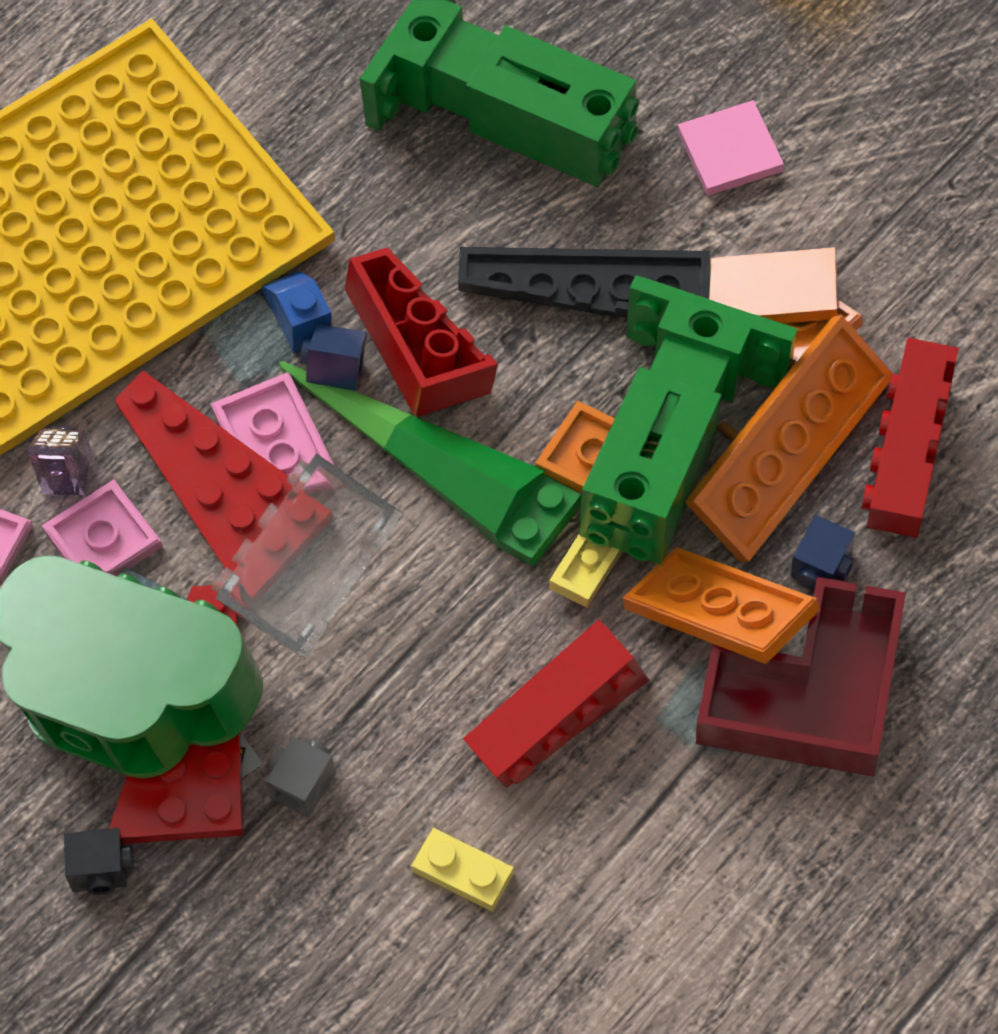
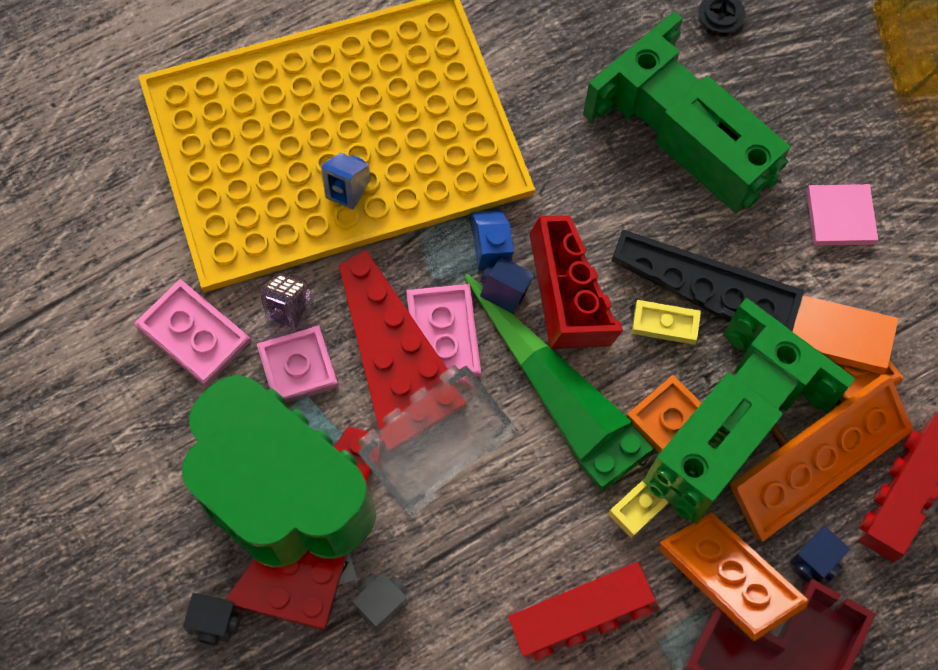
camera: 10 degrees right, 5 degrees up
(89, 290) = (345, 179): none -> slope
(550, 342) = (666, 322): none -> light yellow plate

